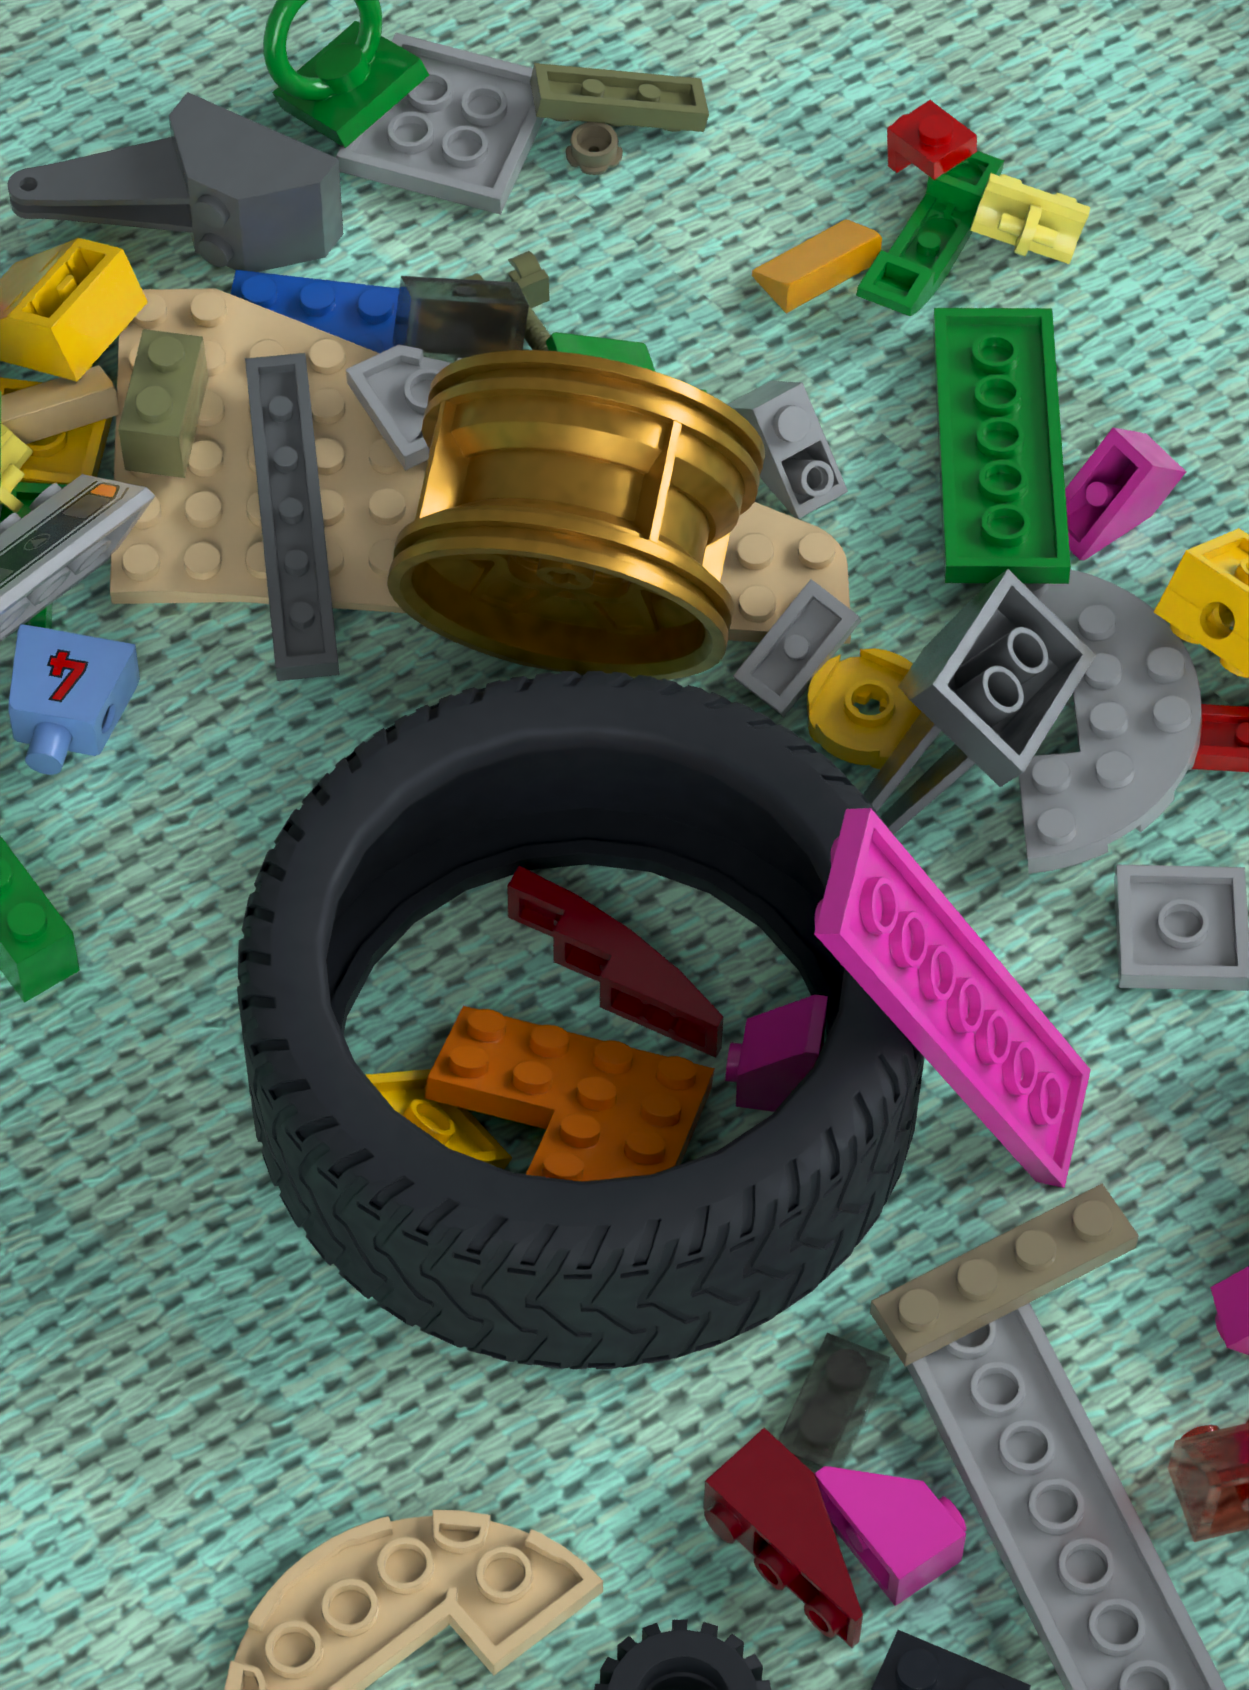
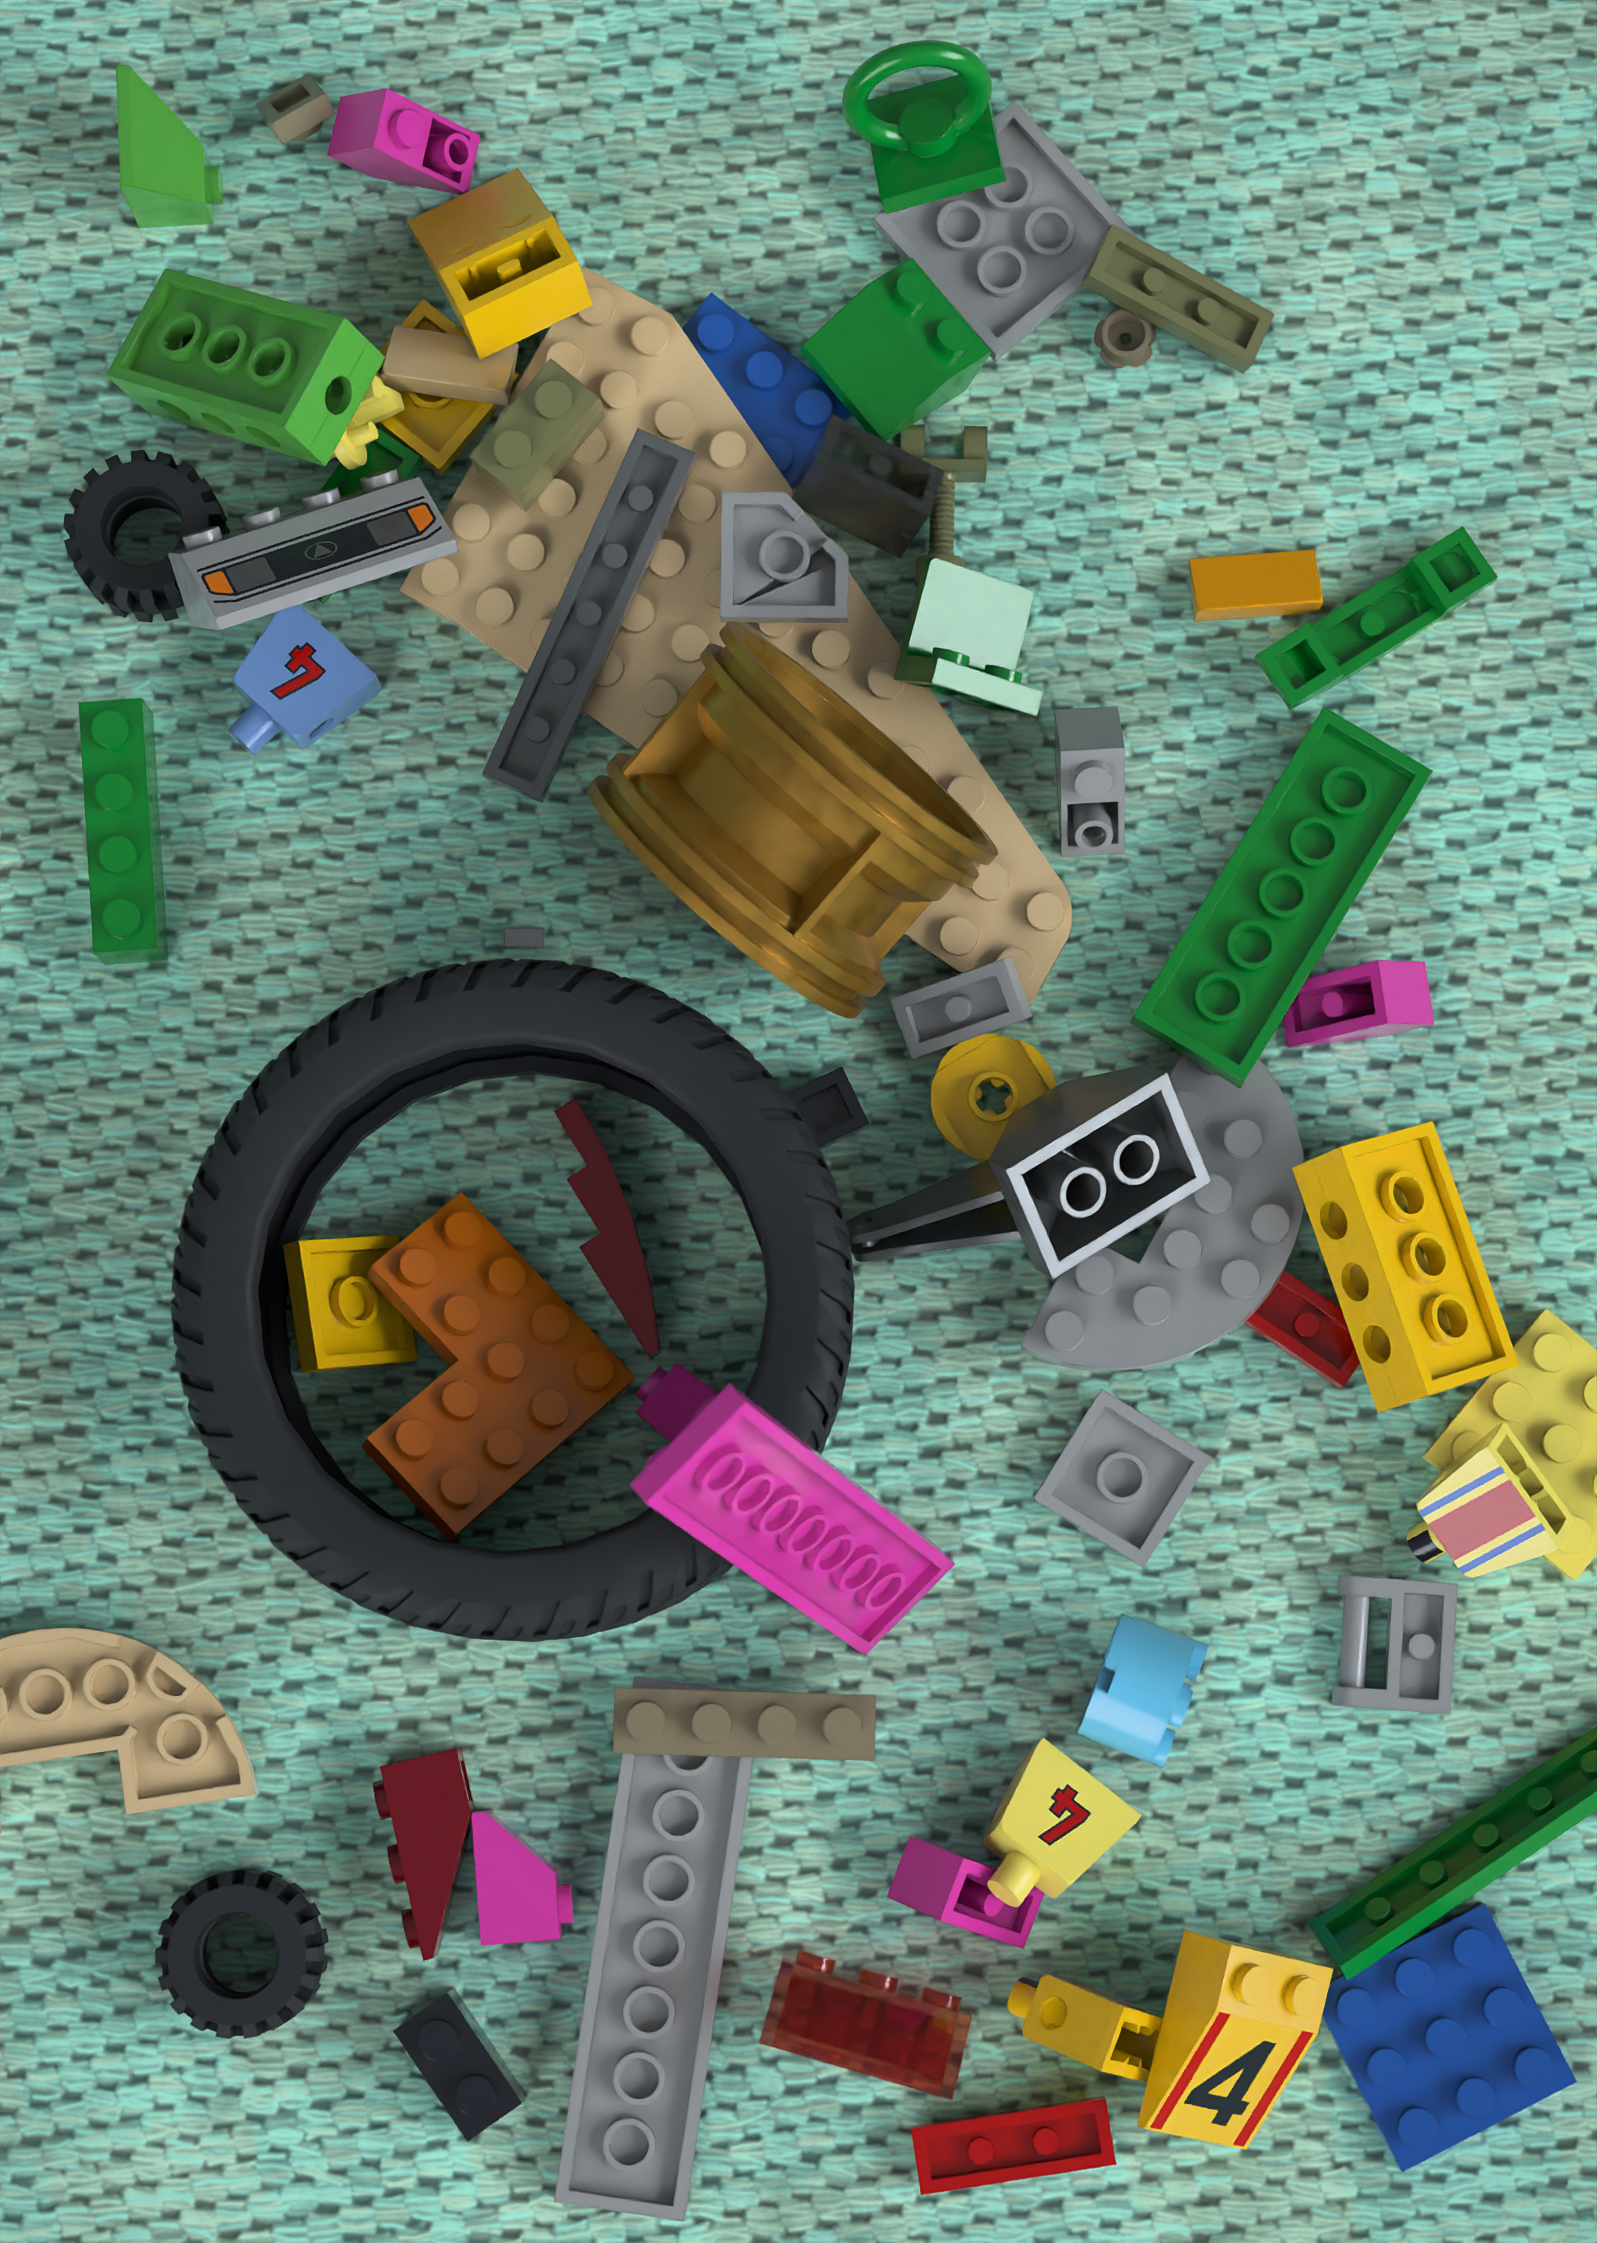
camera: 35 degrees right, 25 degrees up
(226, 180) = (718, 183): dark grey slope -> none
(420, 221) = (896, 351): none -> green slope
(834, 1403) = (541, 1743): clear smoke plate -> none
(929, 141) = (1438, 518): red bracket -> none
(1030, 218) = (1476, 660): light yellow hips -> none

